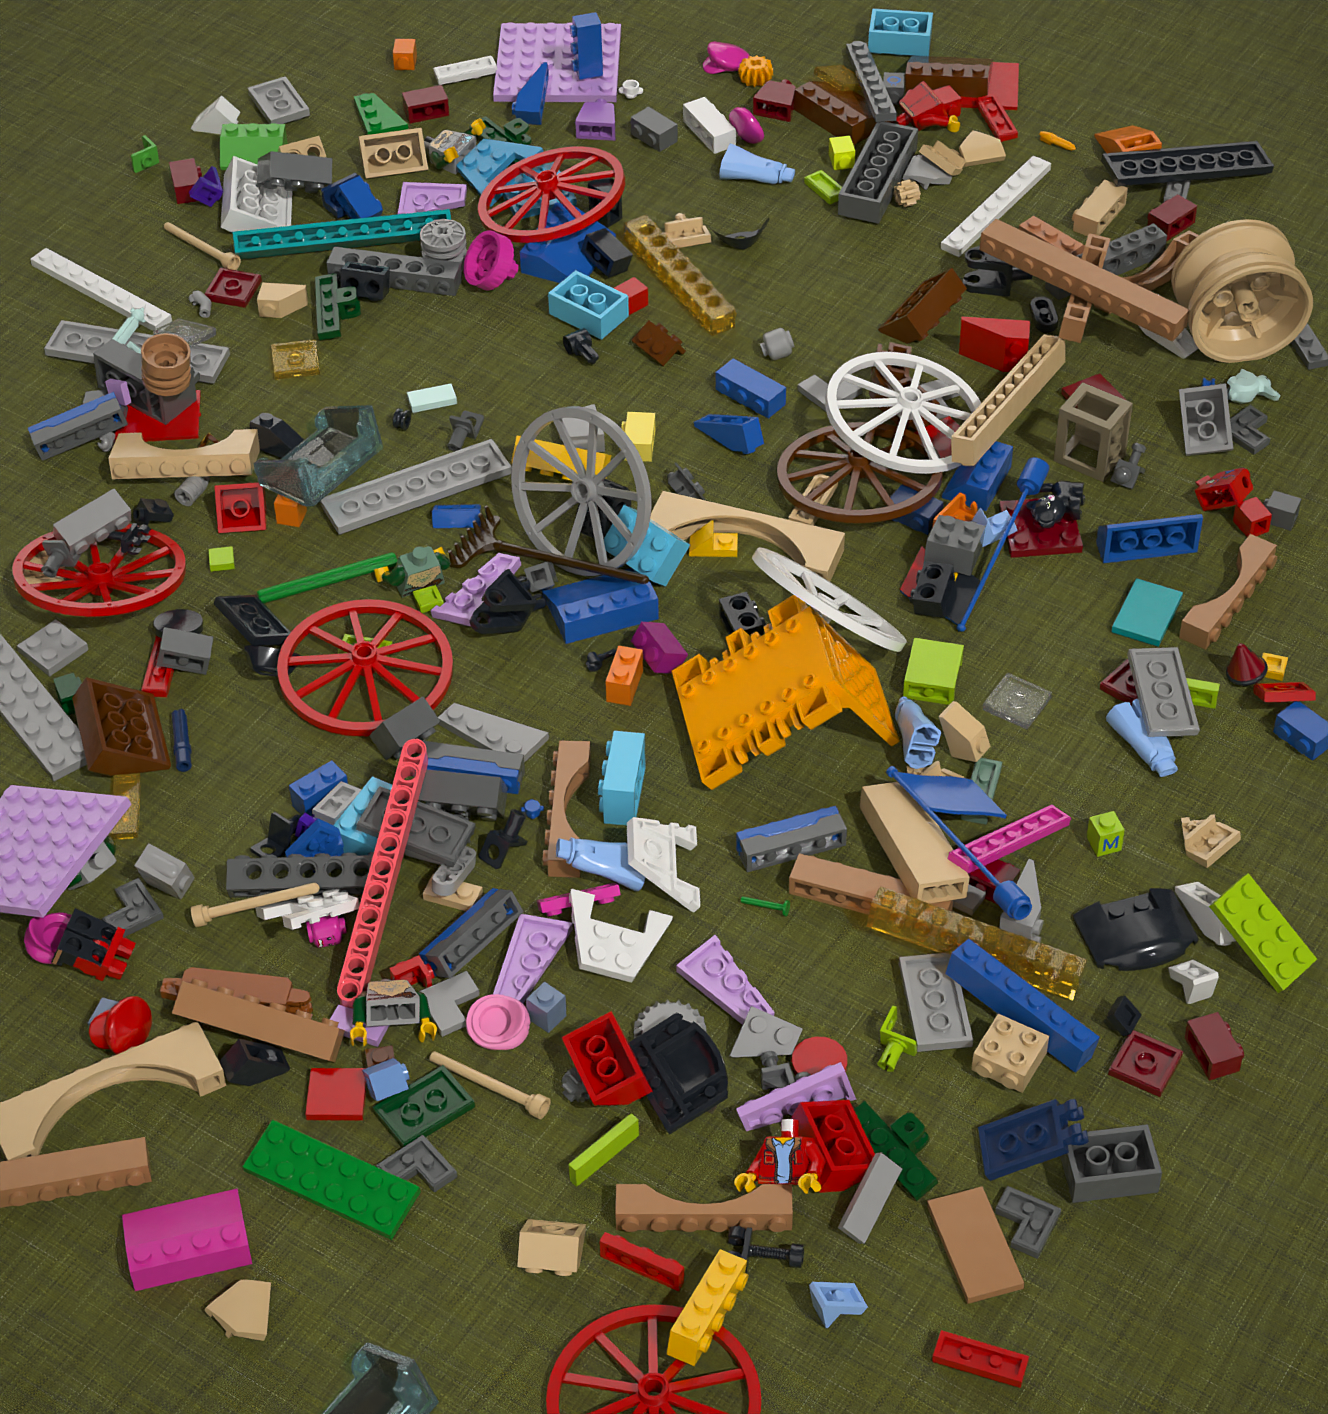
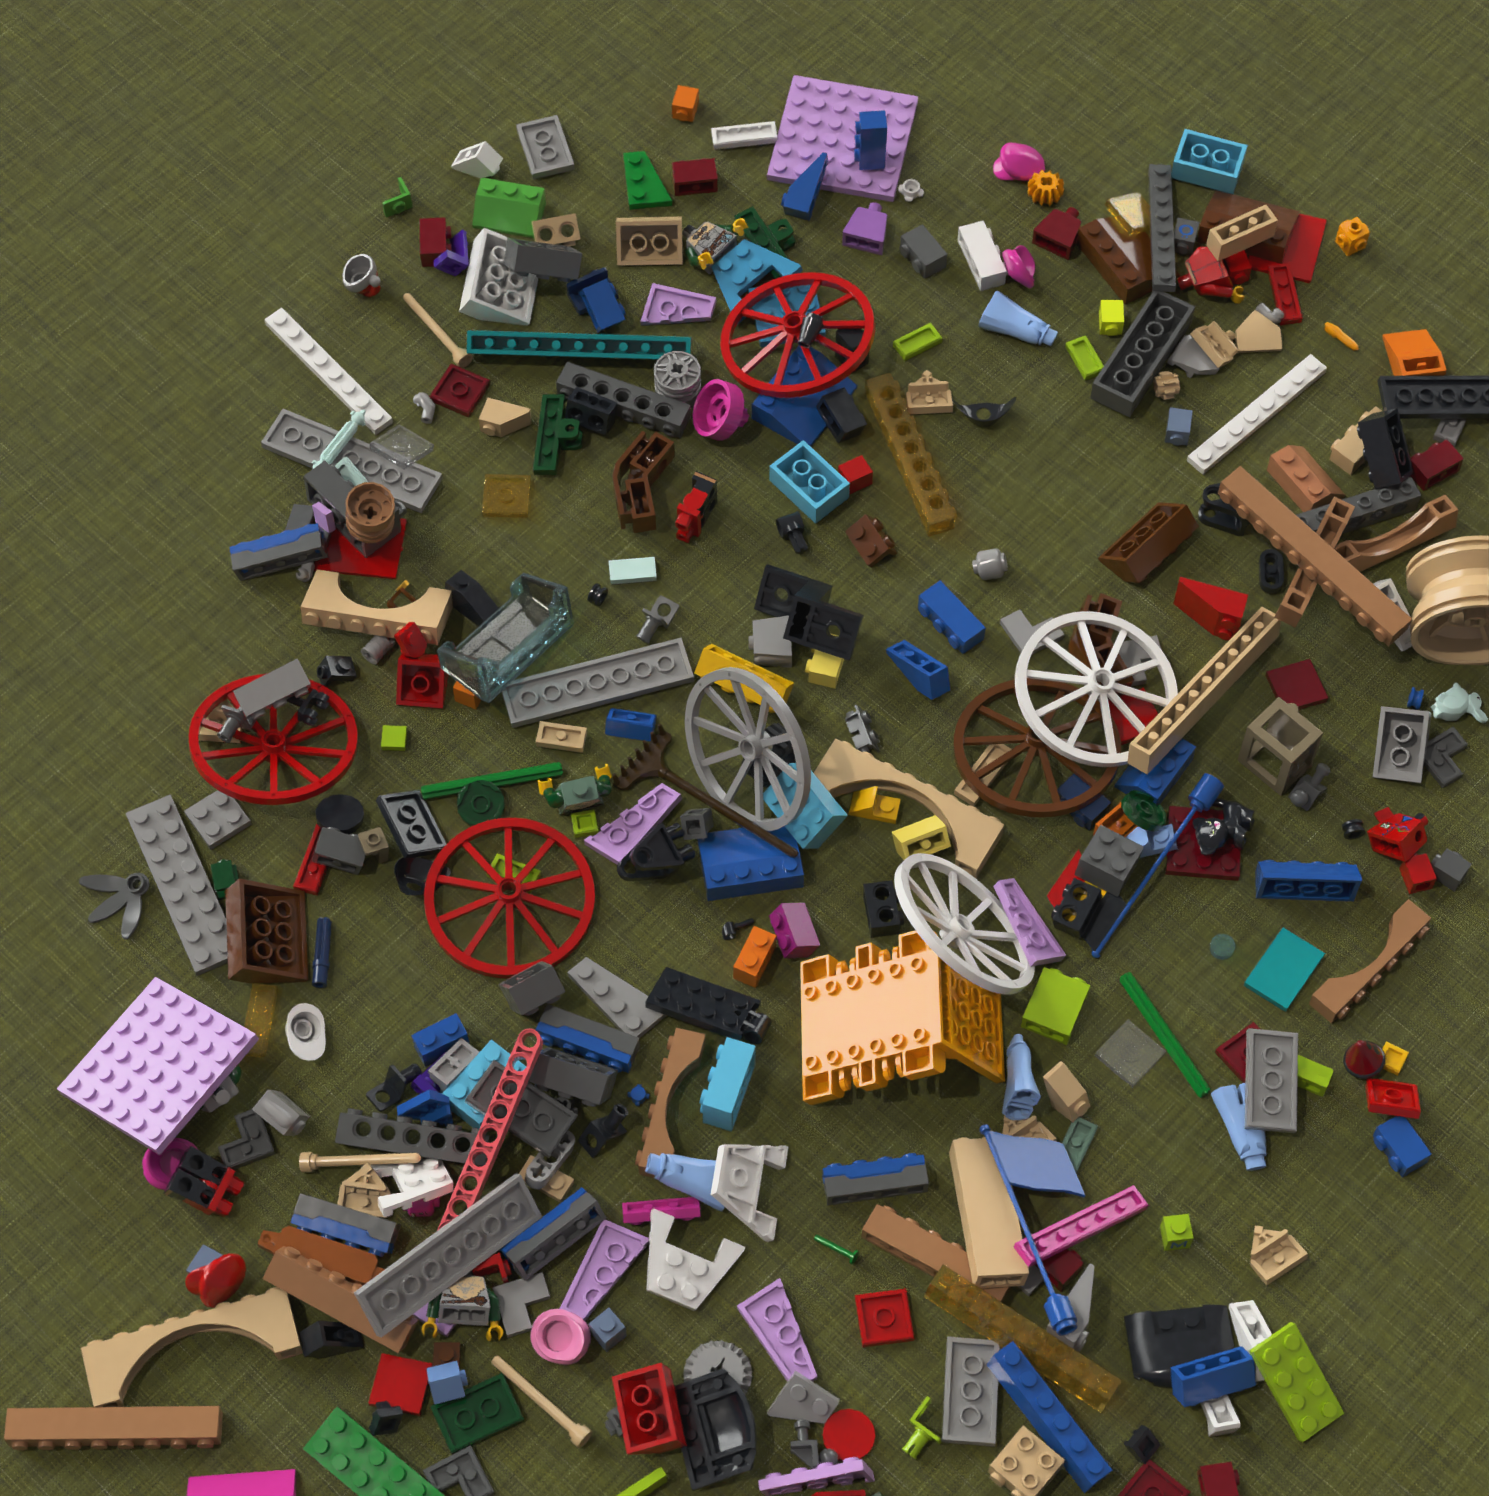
camera: 10 degrees right, 15 degrees up
(121, 211) = (361, 276): none -> light grey piece
(177, 801) = (306, 1032): none -> white piece
(220, 640) = (374, 843): none -> dark tan bracket
(225, 468) = (411, 640): none -> red plate
(252, 957) = (345, 1223): none -> piece
(265, 932) = (362, 1191): none -> tan slope
(318, 593) = (480, 802): none -> dark green tile
(327, 1123) = (385, 1419): none -> black tile
(365, 958) = (447, 1255): none -> light grey plate
(390, 532) = (561, 736): none -> tan plate
(425, 312) = (646, 462): none -> reddish brown brick
(484, 336) = (696, 507): none -> red hips
(564, 178) = (810, 328): none -> black cone
(584, 720) = (708, 1006): none -> black hinge
(615, 392) = (808, 612): none -> black bracket
(665, 195) = (917, 341): none -> lime tile
(778, 544) = (921, 837): none -> light yellow brick
(830, 955) = (884, 1318): none -> red tile
(888, 610) = (1032, 933): none -> lavender wing
(926, 221) = (1178, 426): none -> sand blue brick
(946, 64) = (1241, 232): none -> tan brick
(976, 499) = (1143, 811): none -> dark green tile
(992, 131) = (1274, 316): none -> light grey arm
(1046, 68) = (1352, 236): none -> light orange brick
(1047, 680) = (1165, 1035): none -> green axle
(1082, 603) = (1222, 946): none -> clear light blue tile
(1123, 200) = (1385, 448): none -> black brick
(1178, 943) = (1213, 1376): none -> blue brick
(1180, 493) = (1353, 829): none -> black bush

